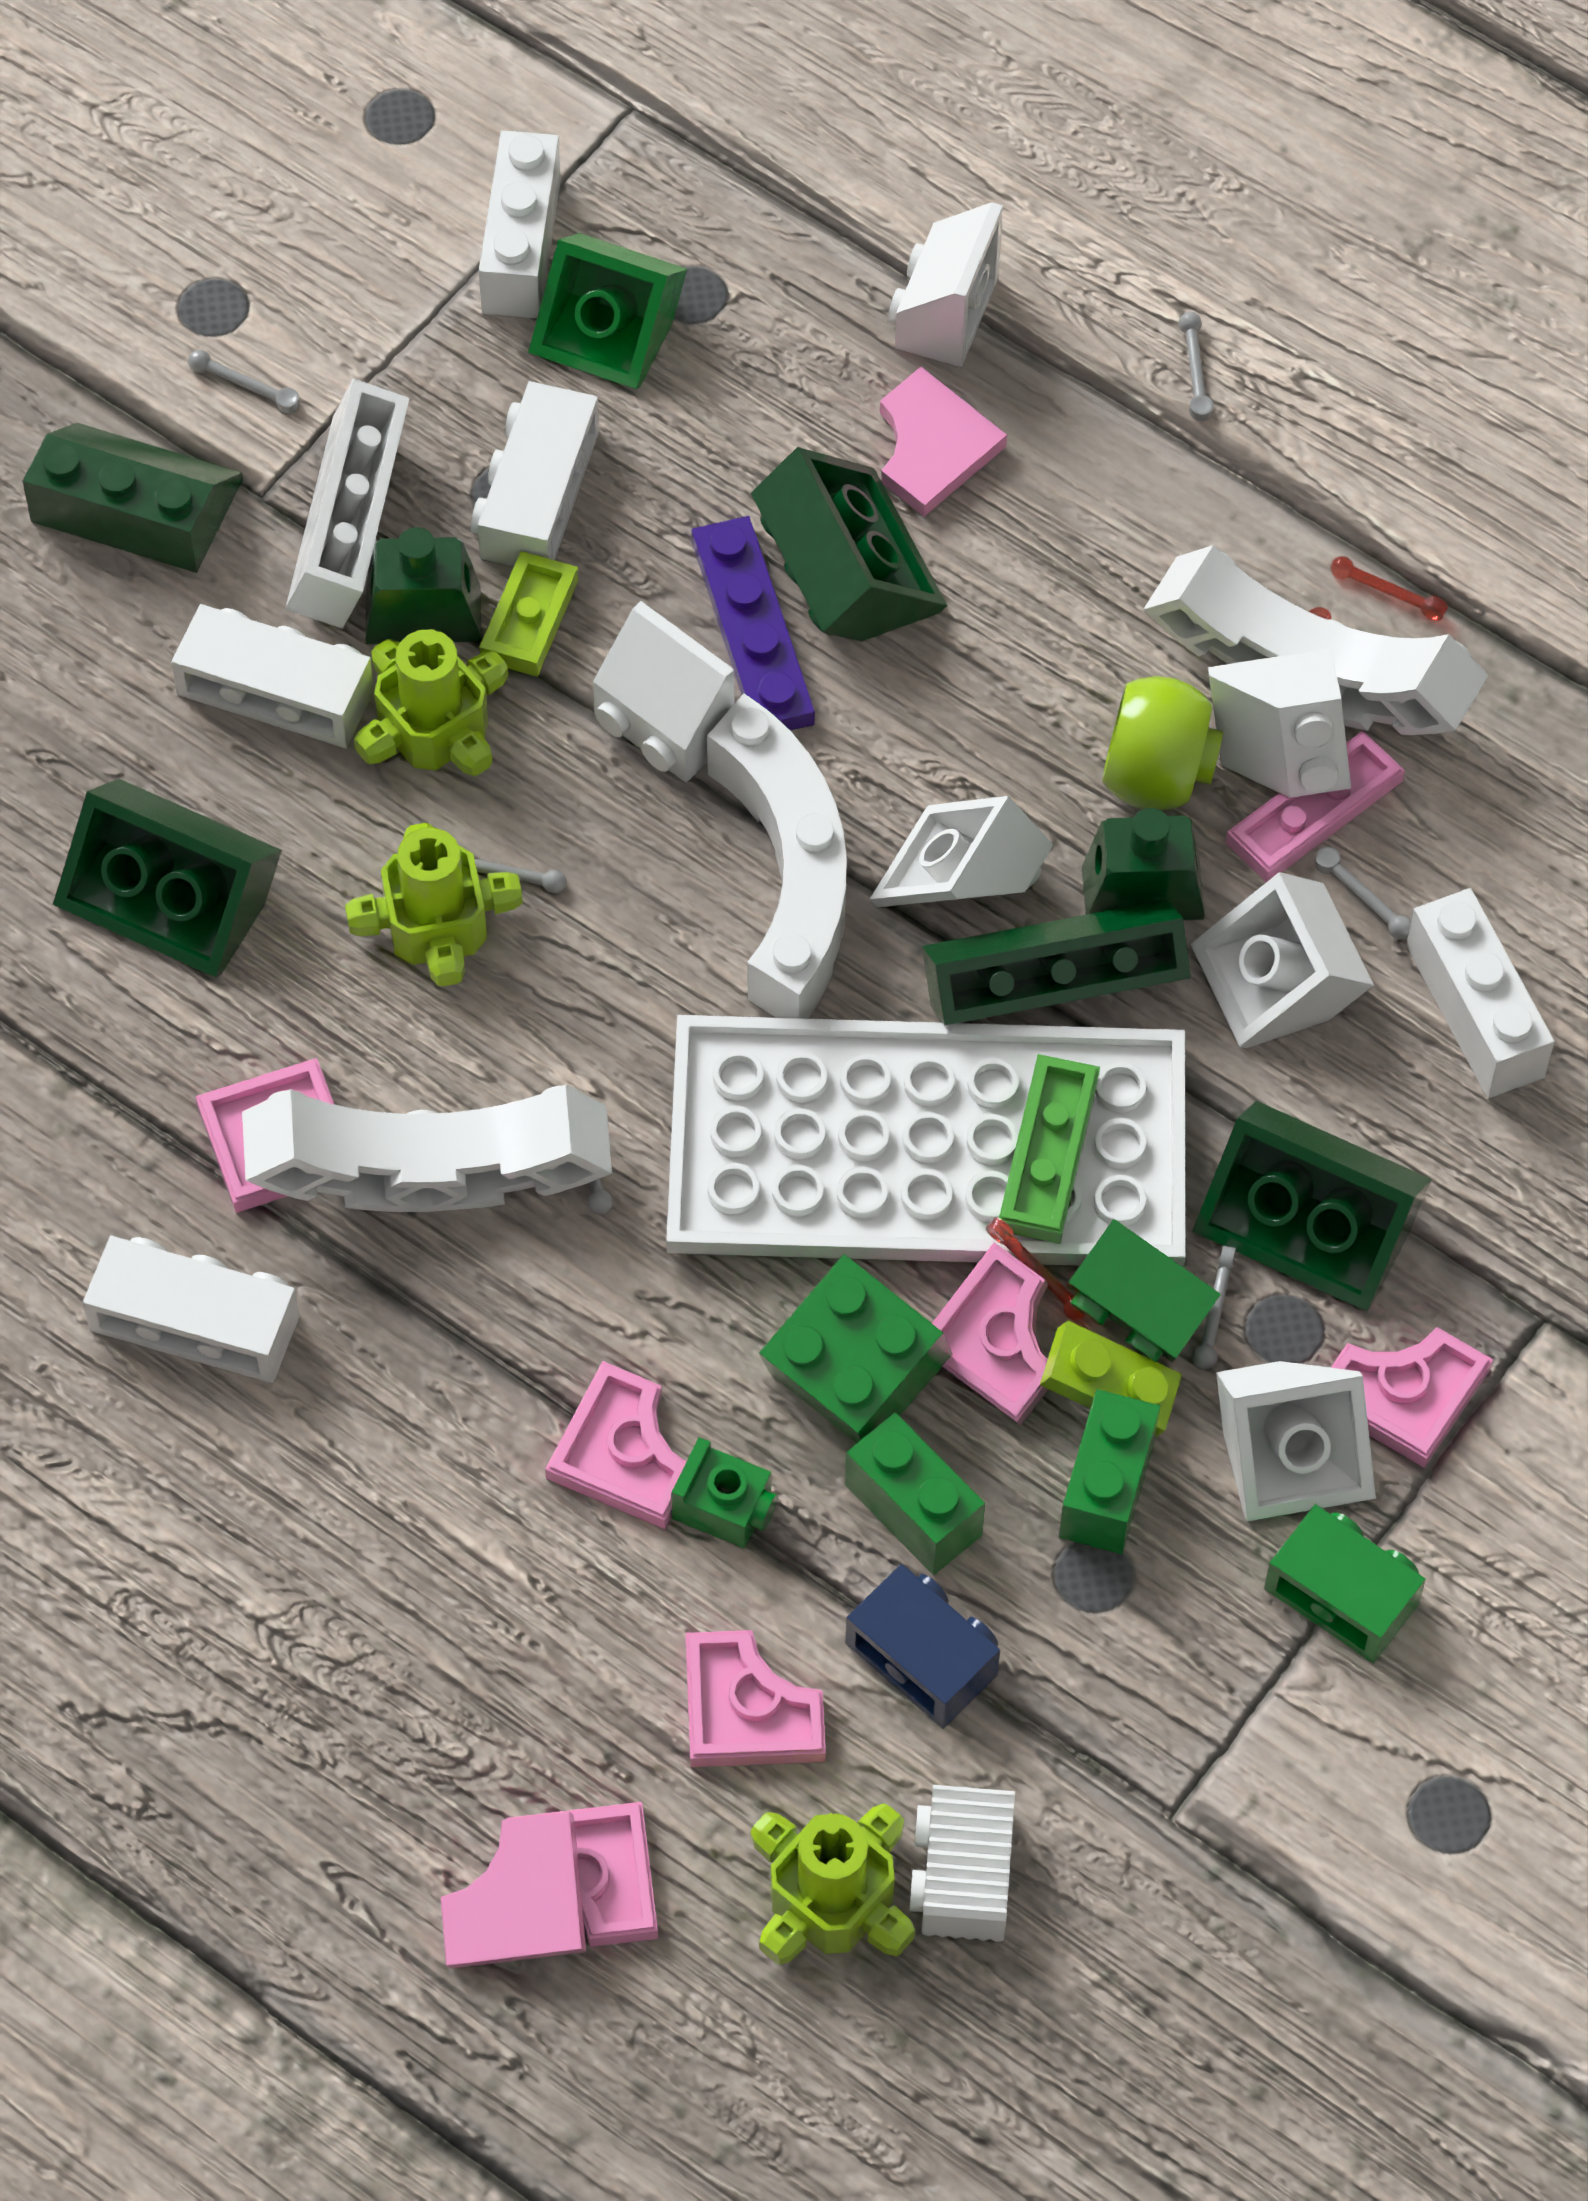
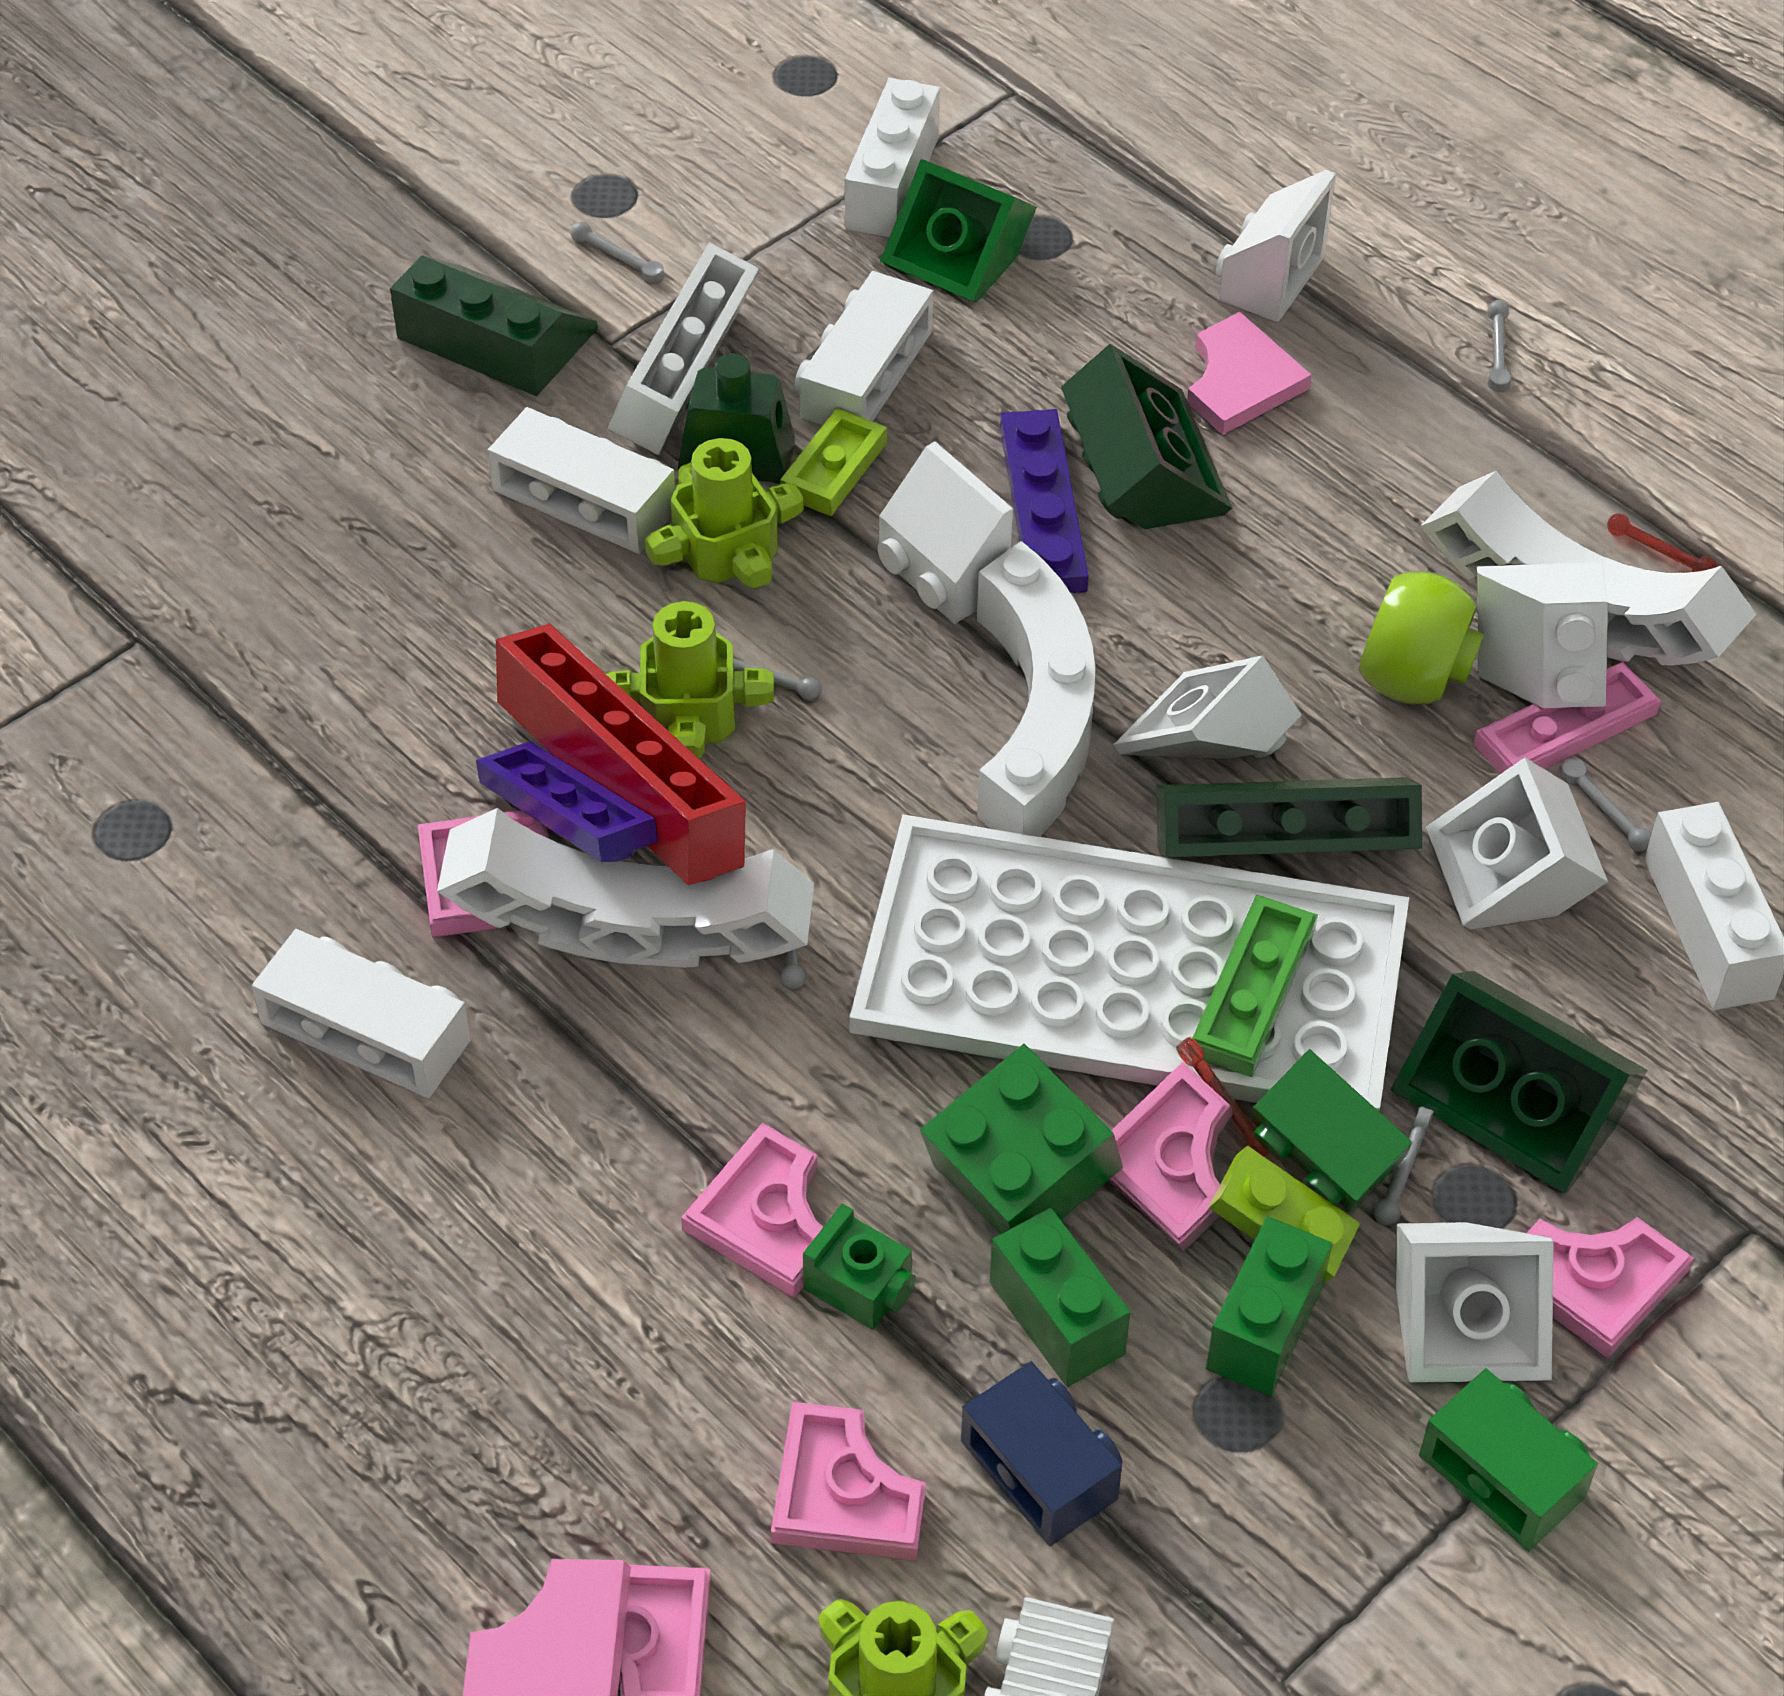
camera: 10 degrees right, 10 degrees down
(165, 876) = (430, 627): dark green slope -> none
(345, 1057) = (567, 802): none -> dark purple plate
(388, 998) = (618, 744): none -> red brick
(1144, 863) = (1391, 736): dark green torso -> none

